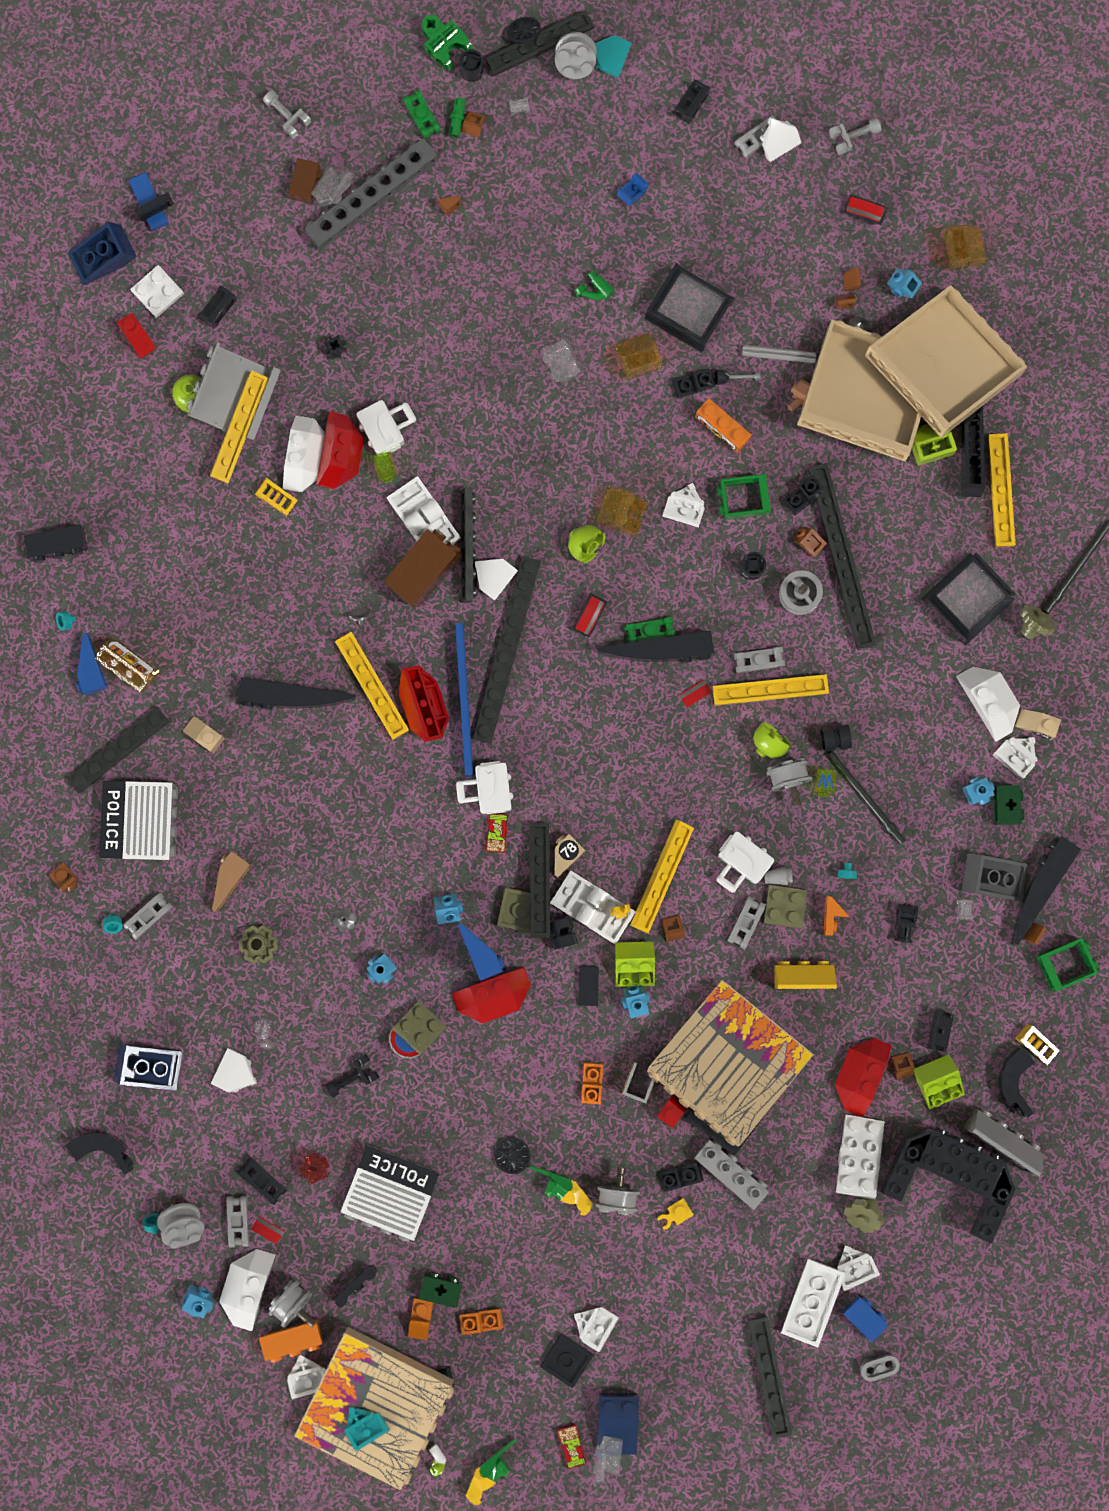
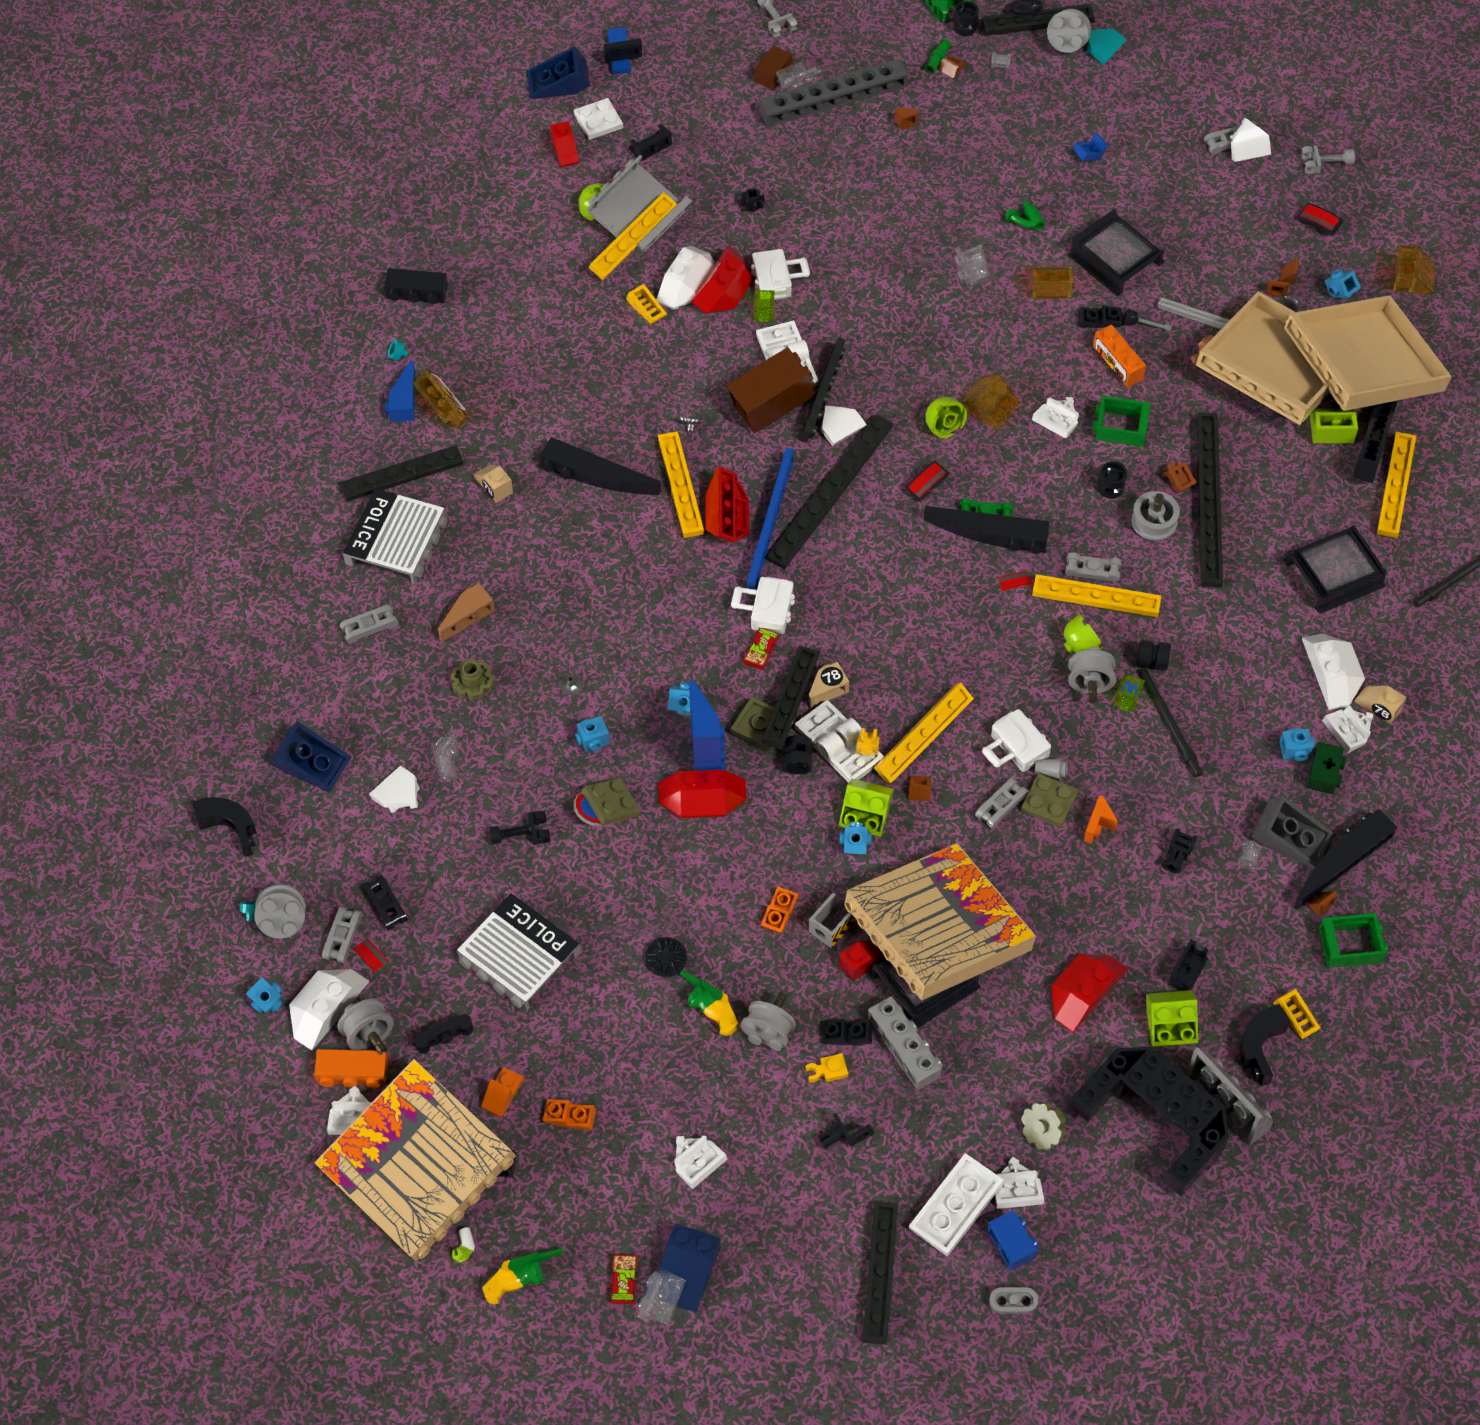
camera: 20 degrees right, 25 degrees down
(64, 878) = (299, 567): dark orange bracket -> none
(112, 924) = (329, 619): teal tile -> none
(315, 1175) = (446, 902): clear red brick -> none
(364, 1427) = (396, 1169): teal slope -> none
(421, 114) = (904, 46): green plate -> none
(431, 1294) = (542, 1075): dark green brick -> none
(566, 1360) = (651, 1185): black tile -> none
(588, 986) = (808, 816): black tile -> none
(691, 101) = (1172, 97): black hinge -> none
(703, 1269) = (839, 1133): none -> black bracket
(804, 495) = (1189, 433): black slope -> none
(804, 975) = (1049, 869): yellow slope -> none
(847, 873) = (1128, 784): teal tile -> none
(860, 1156) = (1057, 1065): white plate -> none
(903, 1065) = (1135, 993): dark orange slope -> none
(1036, 622) = (1401, 606): olive plant -> none

